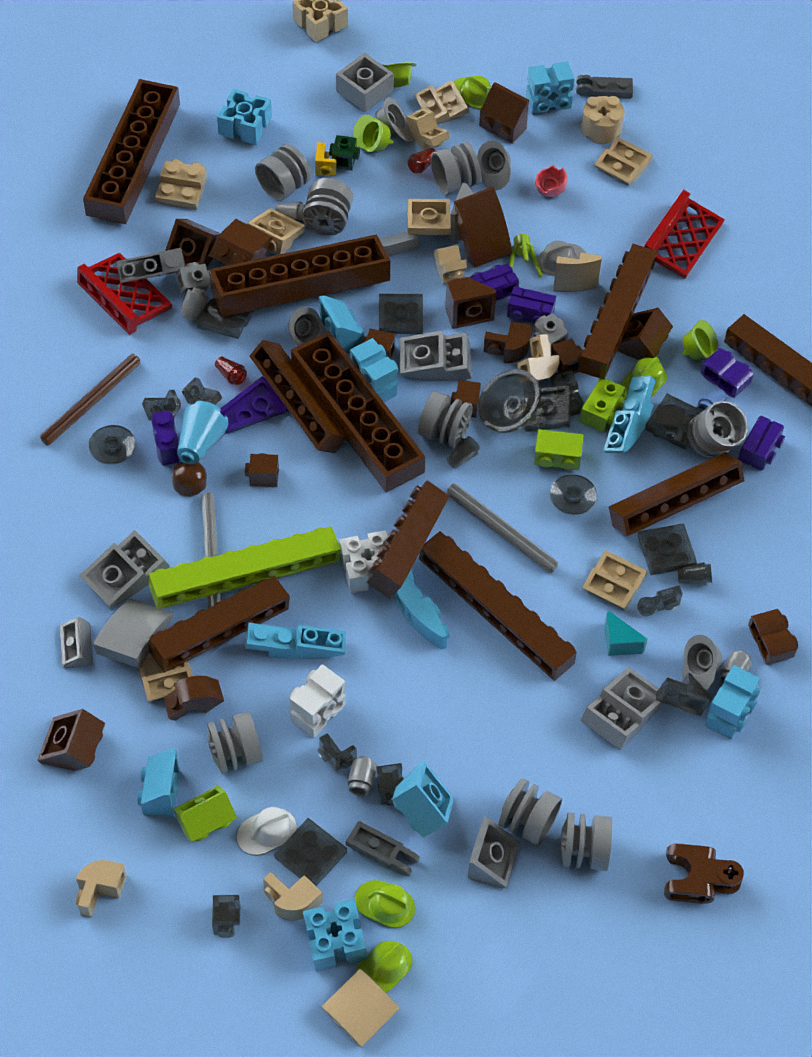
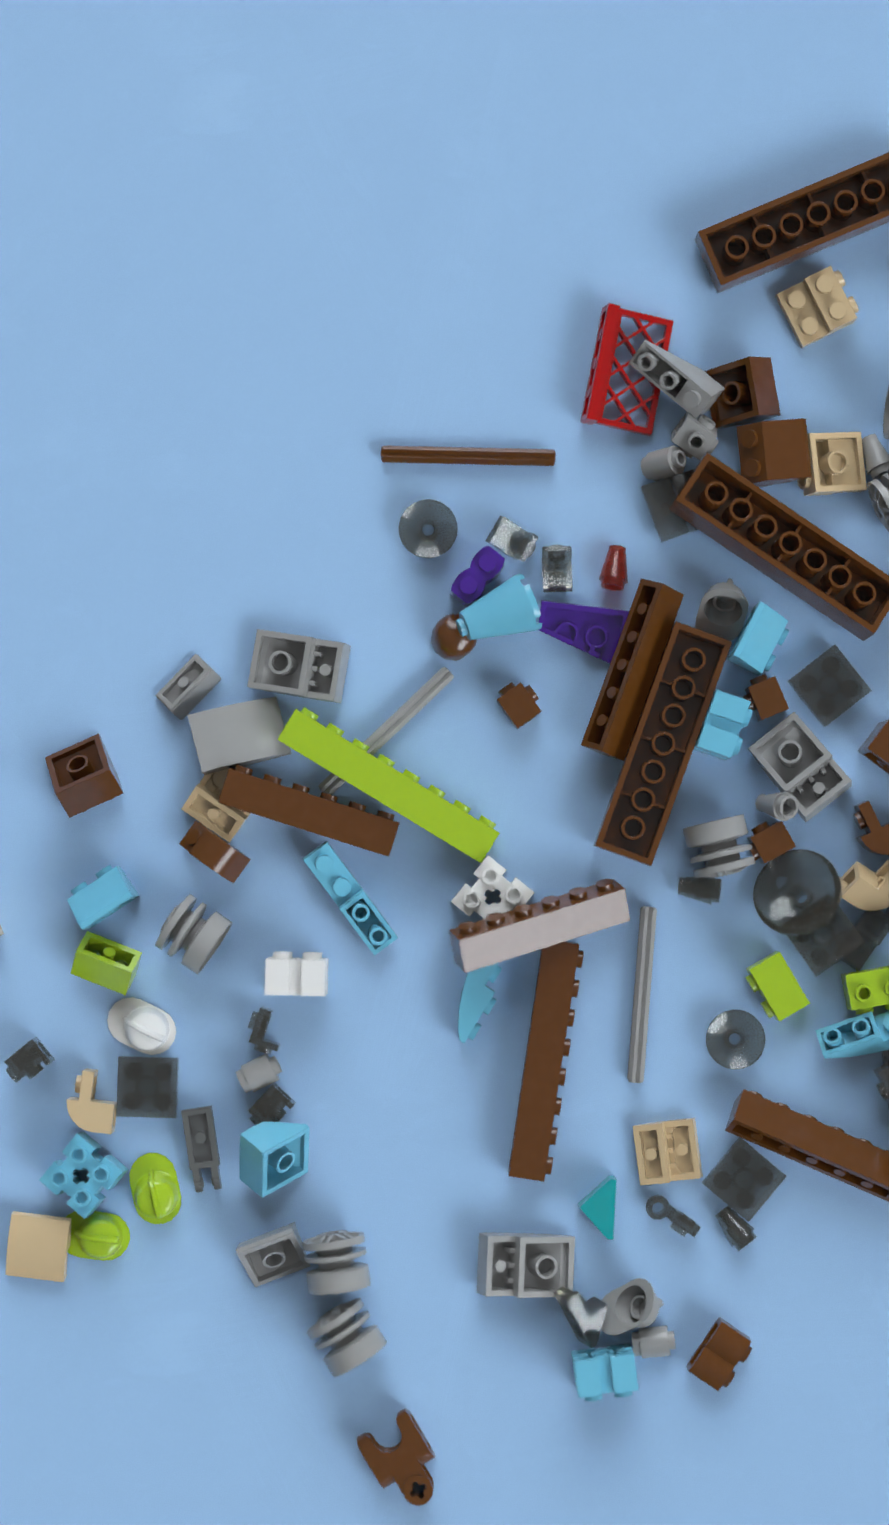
camera: 55 degrees right, 30 degrees up
(448, 377) = (778, 805): none -> light grey cone

